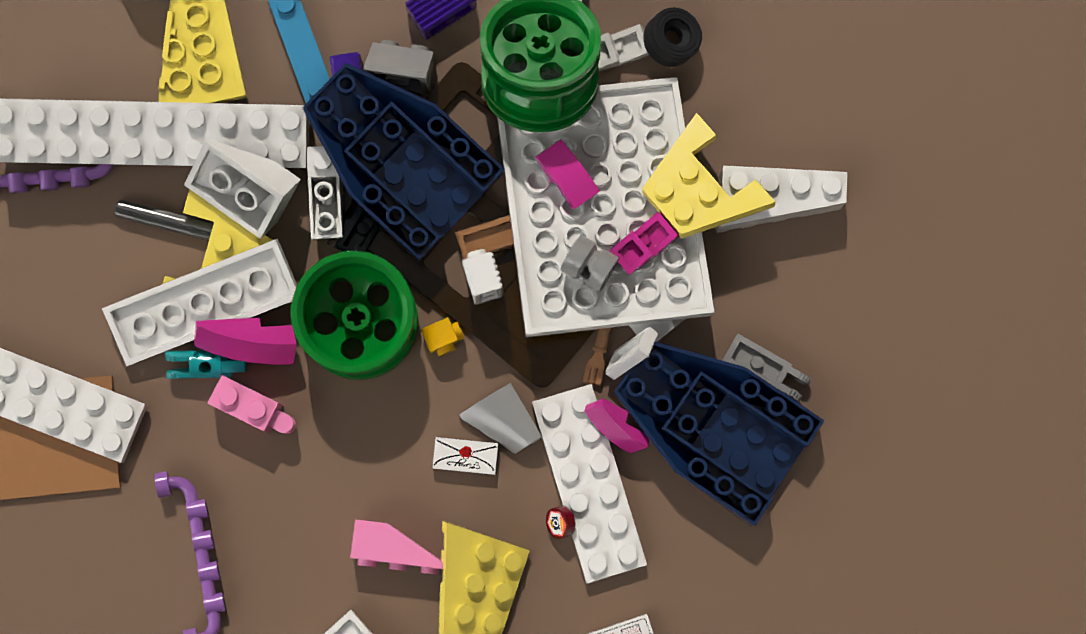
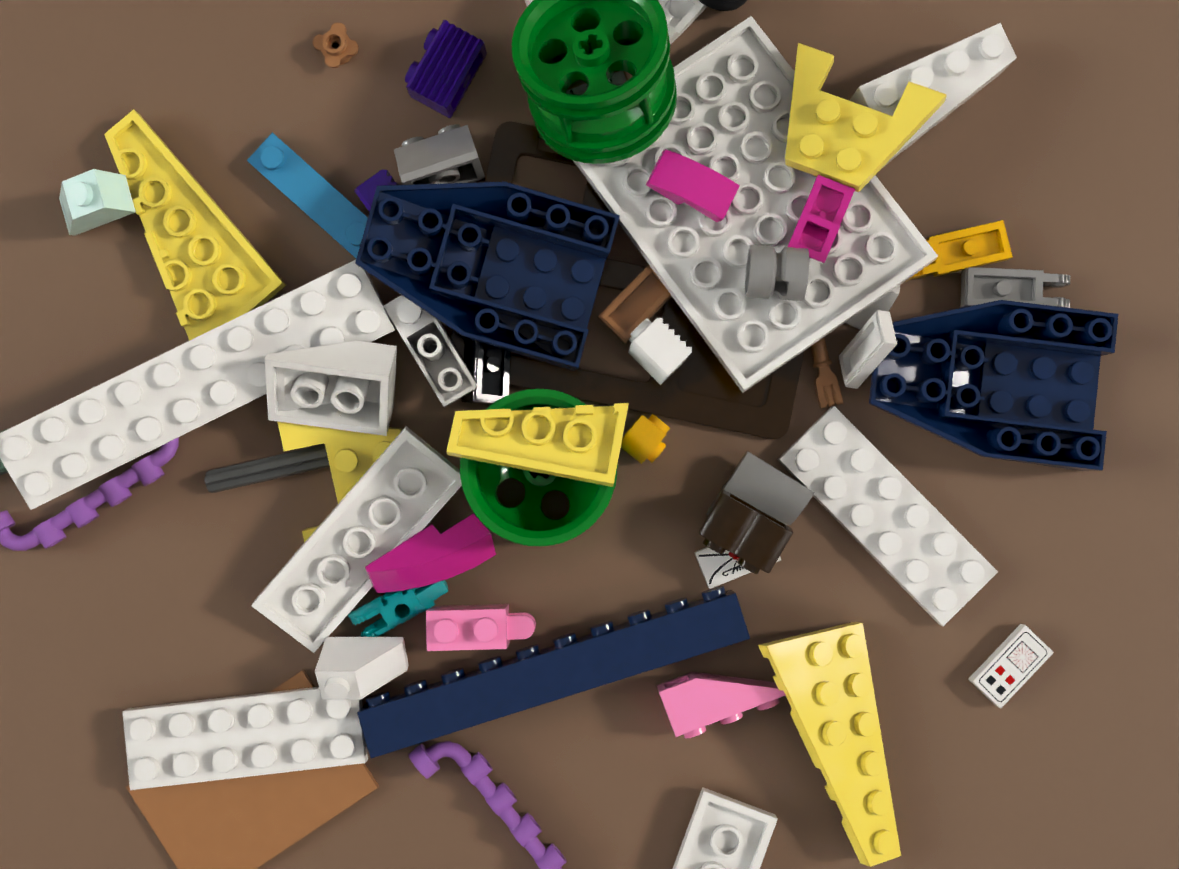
camera: 25 degrees left, 5 degrees up
(154, 390) = (359, 665): none -> white slope
(288, 468) = (552, 672): none -> dark blue brick
(374, 300) = (558, 442): none -> light yellow wing
(477, 438) = (745, 532): none -> dark brown brick
(560, 522) = (881, 575): tile -> none
(612, 424) = (885, 438): dark pink slope -> none
(743, 319) = (967, 248): none -> yellow hinge

